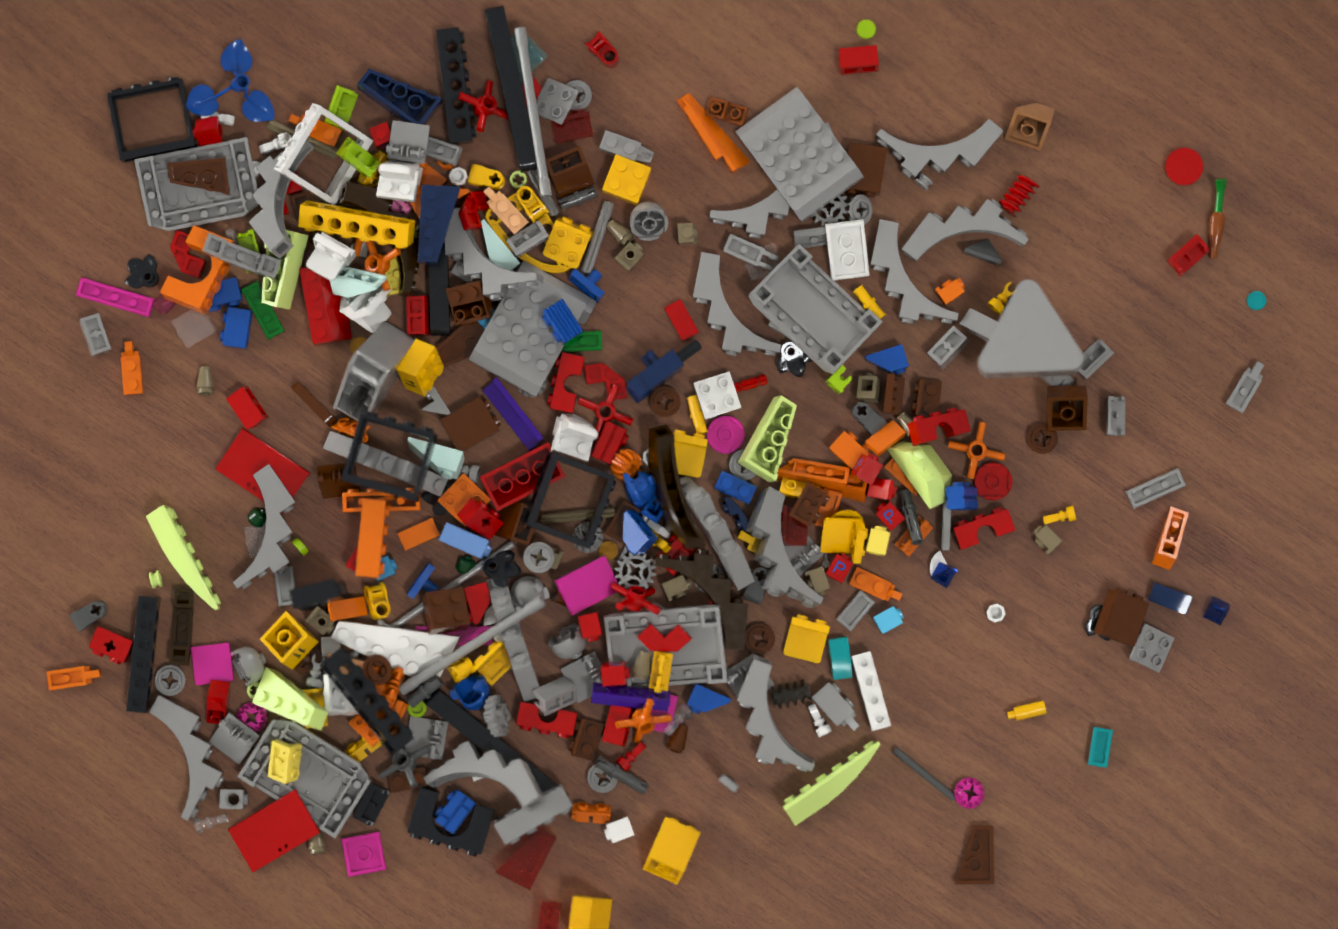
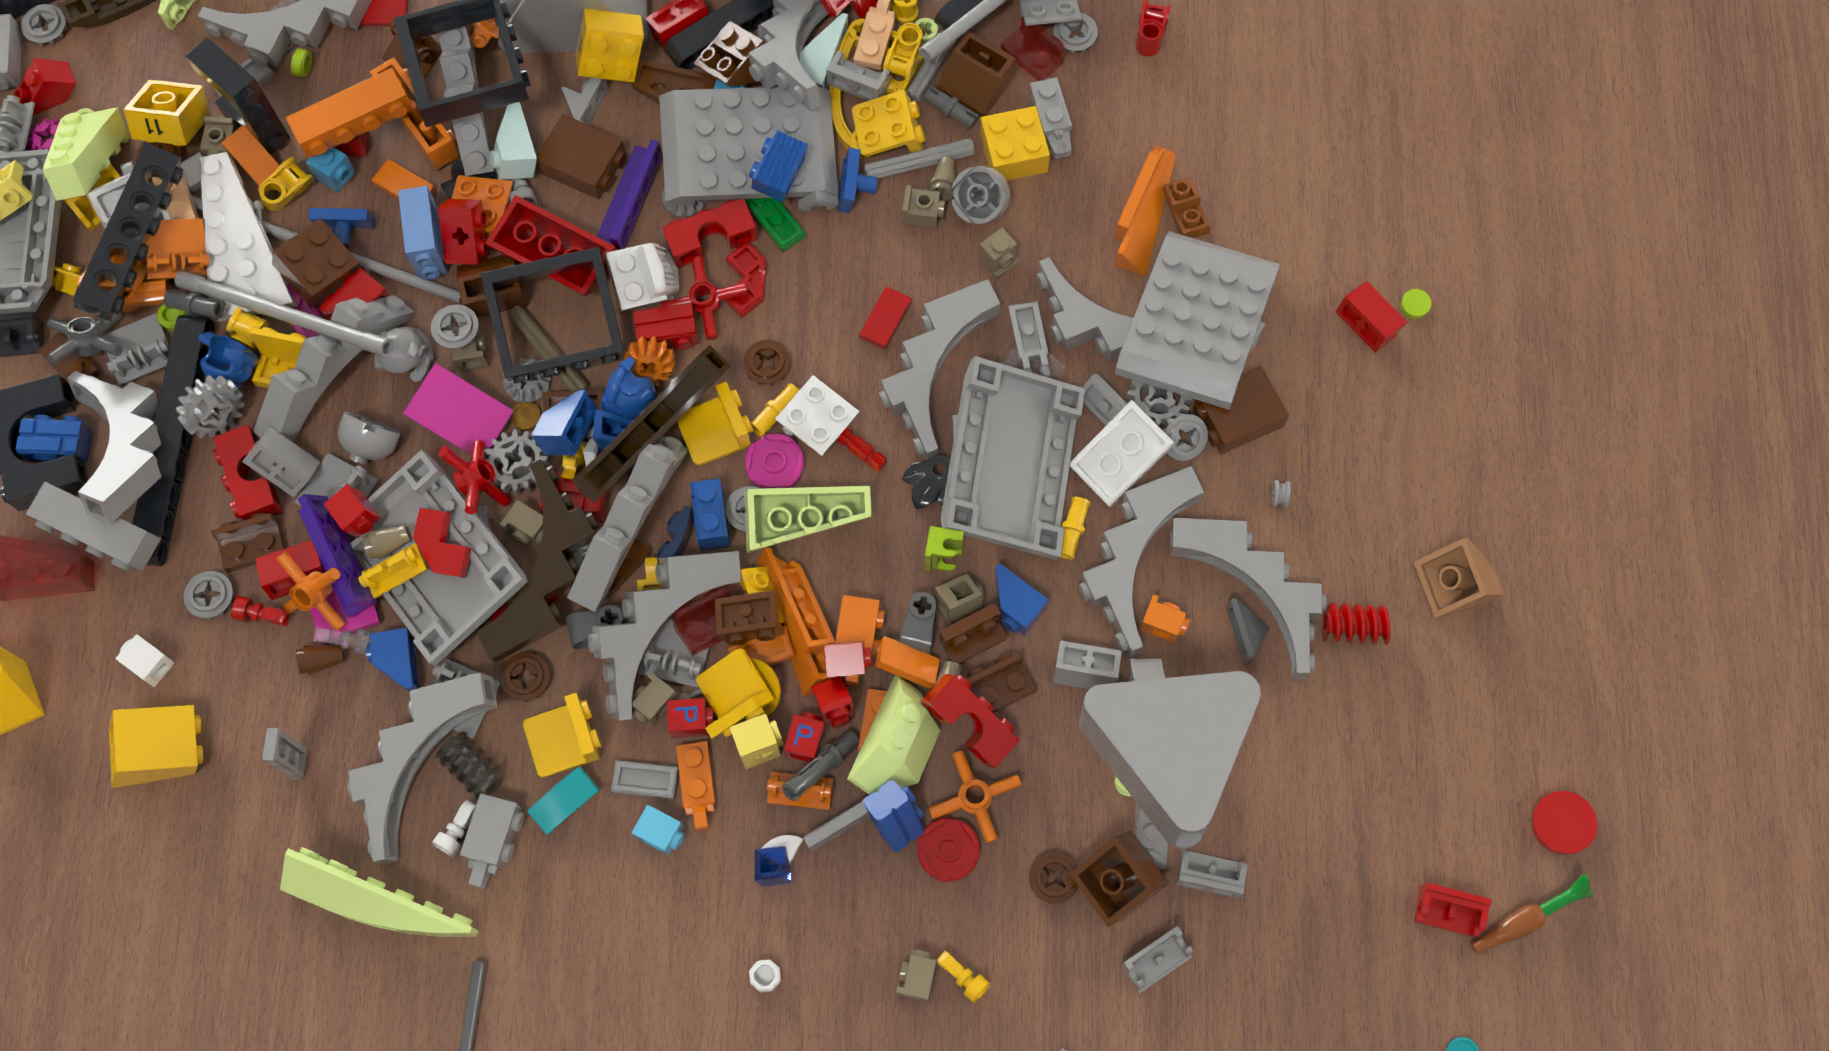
camera: 55 degrees right, 15 degrees down
(212, 663) = (94, 57): dark pink tile -> none
(248, 664) = (109, 87): light grey cylinder -> none
(384, 672) = (181, 215): reddish brown gear -> none
(465, 564) = (397, 259): dark green piece -> none
(504, 568) = (417, 300): black plate -> none
(582, 811) = (146, 598): orange hinge -> none
(590, 627) = (400, 443): red brick -> none
(615, 771) = (221, 612): dark grey pin -> none
(659, 370) = (794, 319): dark blue piece -> none
(870, 691) = (541, 872): white brick -> none
(941, 157) = (1329, 495): light grey arch -> none
(998, 521) = (851, 858): red arch -> none

